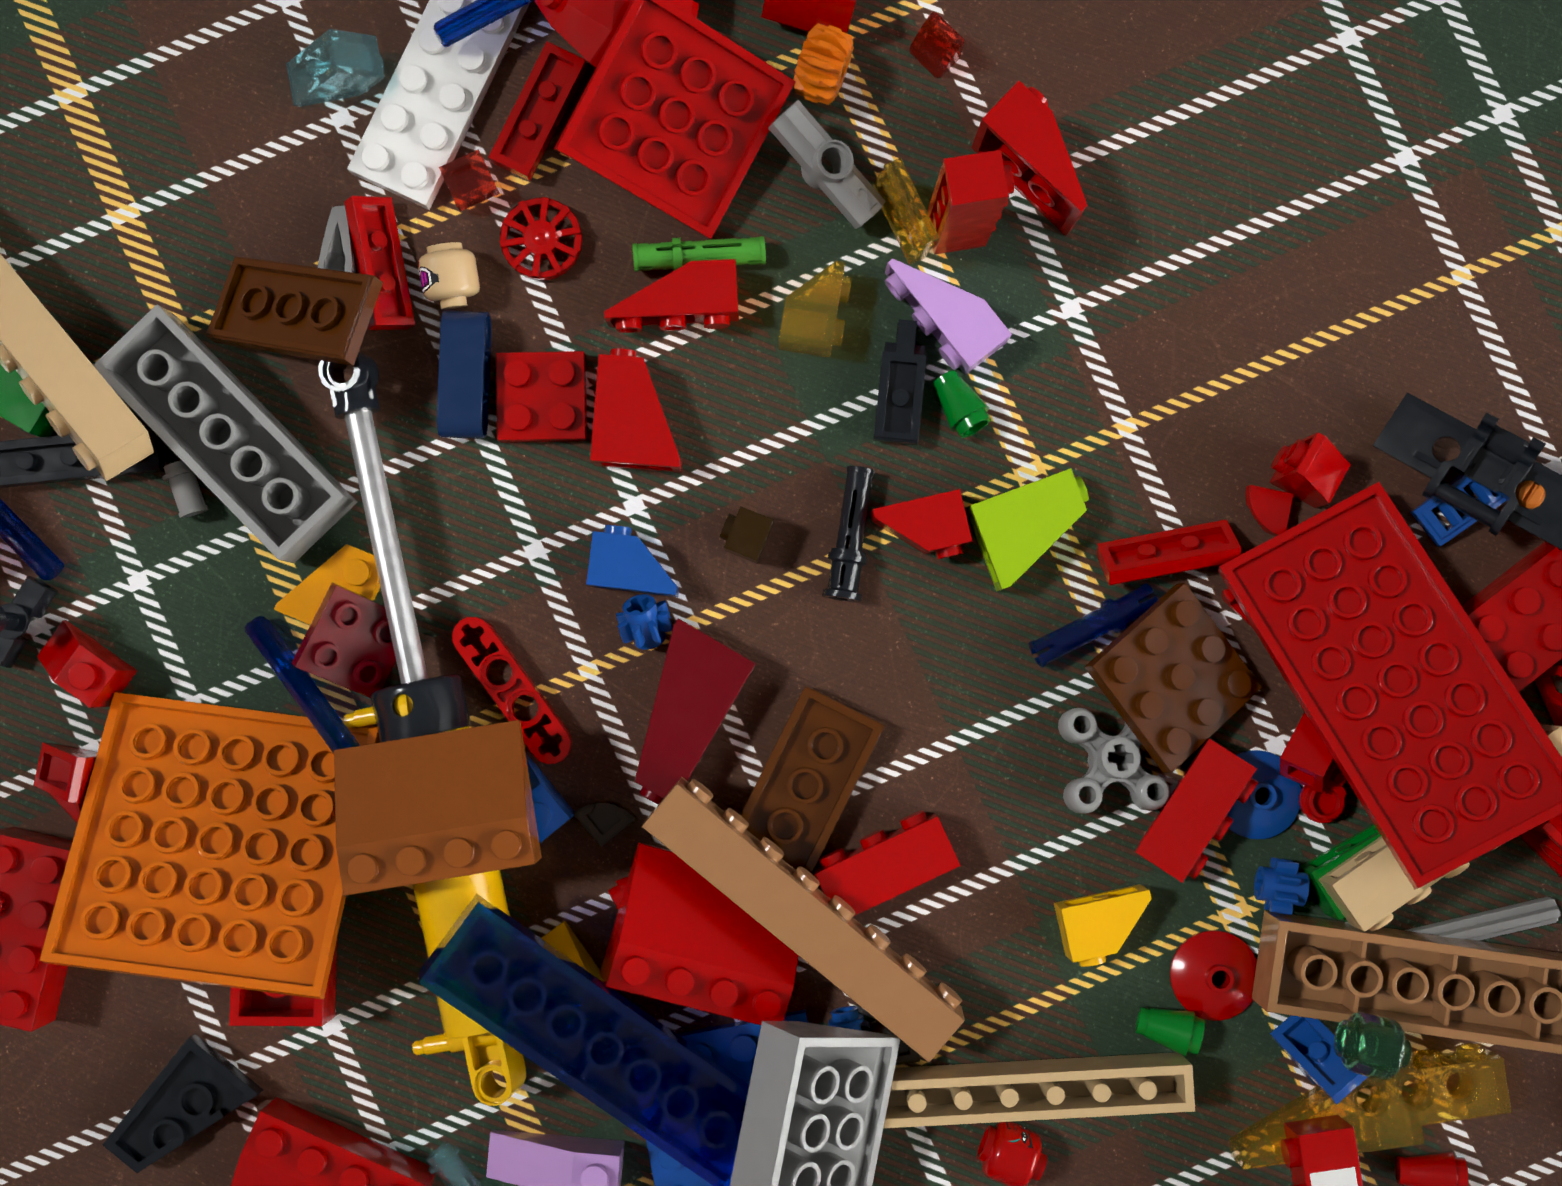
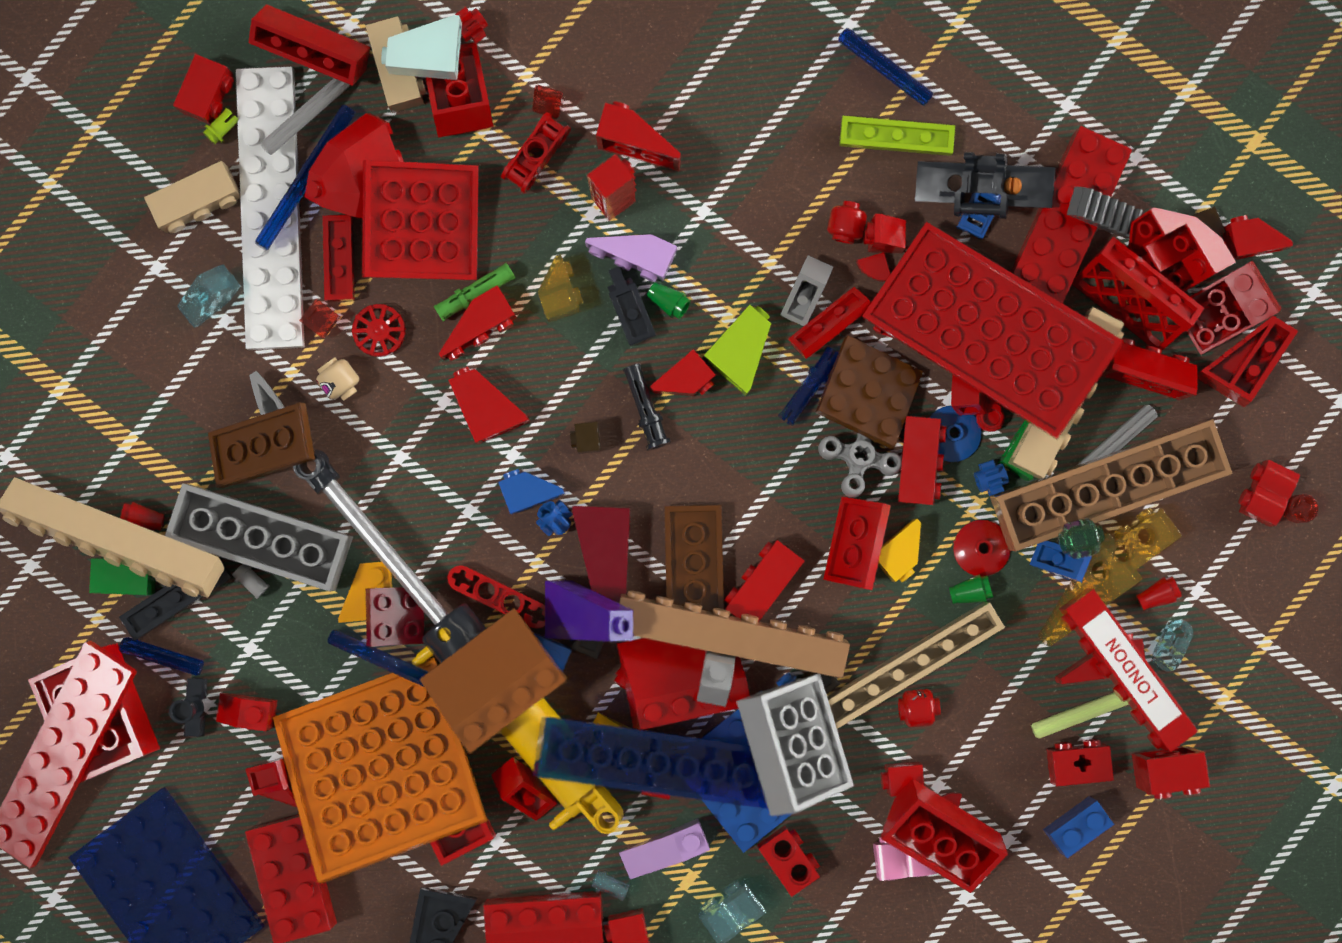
camera: 30 degrees left, 0 degrees up
(83, 323) = (142, 516): none -> red cone
(380, 254) = (292, 389): red plate -> none
(393, 974) = (522, 789): none -> red slope
(464, 374) = (376, 431): dark blue beam -> none
(541, 396) = (427, 421): red plate -> none
(614, 781) = (584, 614): none -> dark purple slope
(751, 969) = (716, 678): none -> light grey slope
(808, 144) = (504, 198): light grey piece -> none
(823, 64) = (488, 147): orange gear -> none
(905, 211) = (579, 207): clear yellow plate -> none
(910, 92) = (523, 168): none -> red piece
(1047, 879) = (857, 542): none -> red plate
(1158, 491) = (806, 291): none -> light grey slope
(1264, 426) = (847, 222): none -> red head
(1396, 342) = (897, 135): none -> lime plate
(1428, 239) = (885, 66): none -> clear blue axle

